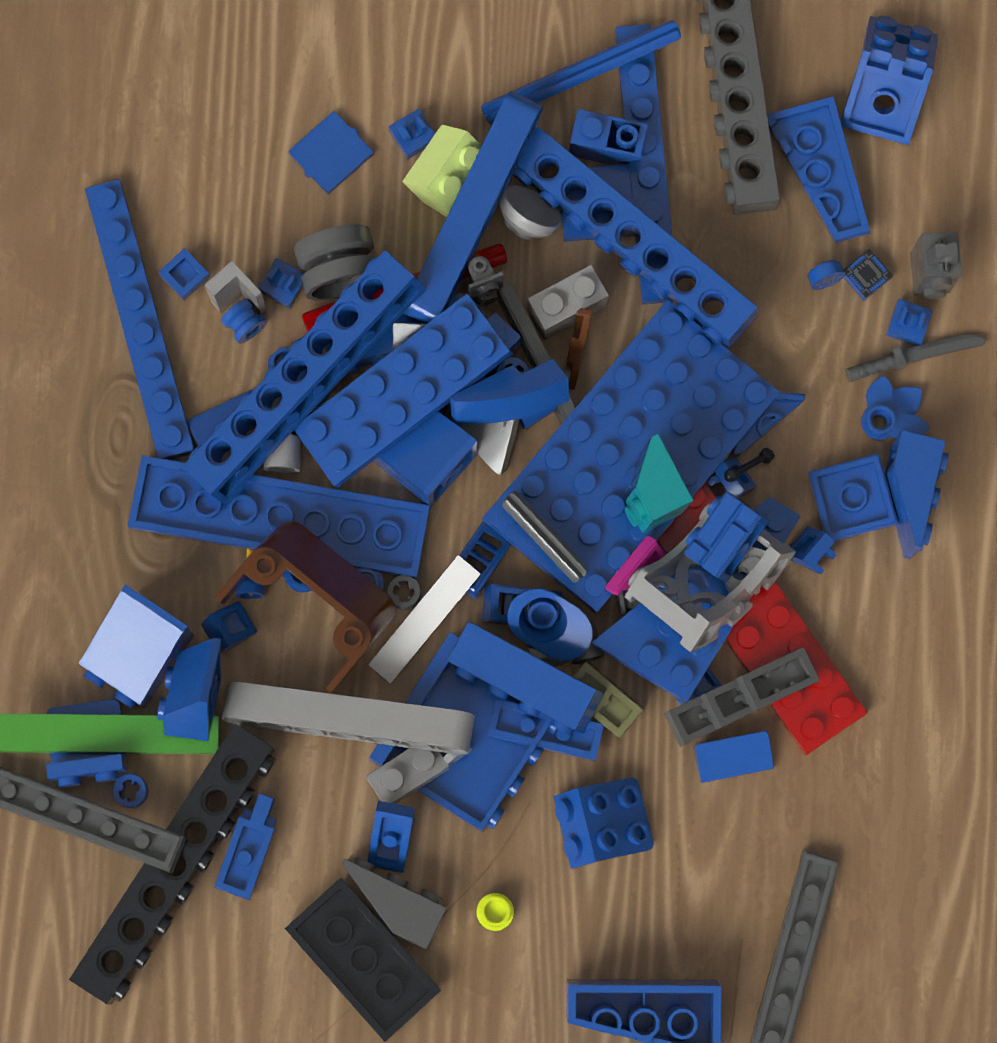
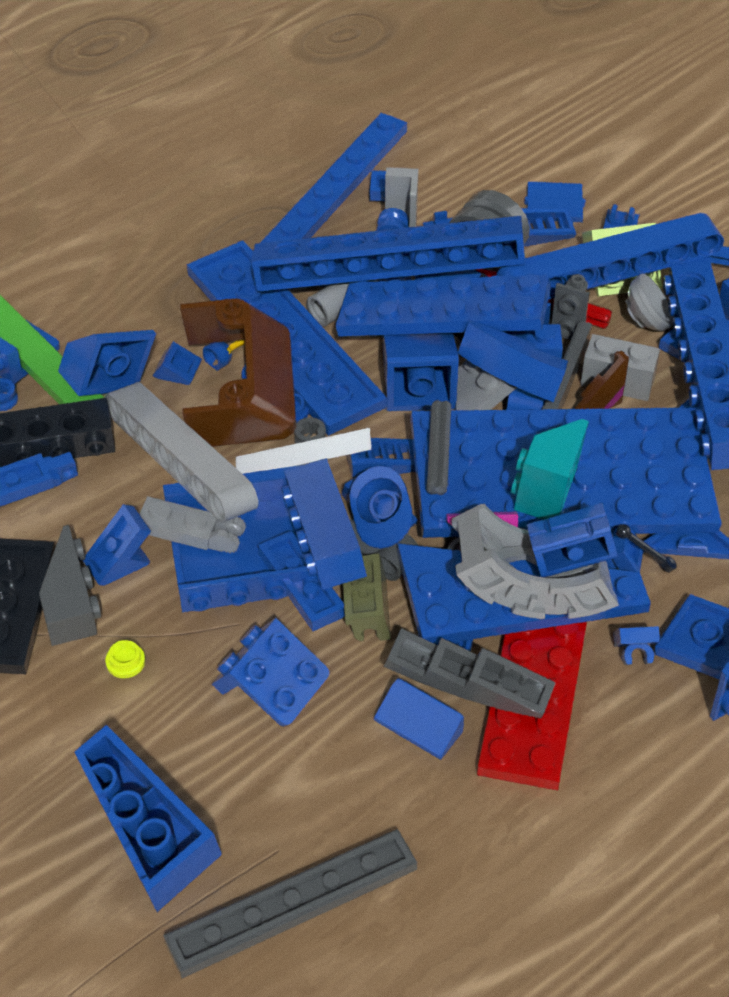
camera: 50 degrees right, 30 degrees down
(134, 648) = (104, 306): slope -> none
(337, 213) = (540, 234): none -> blue slope

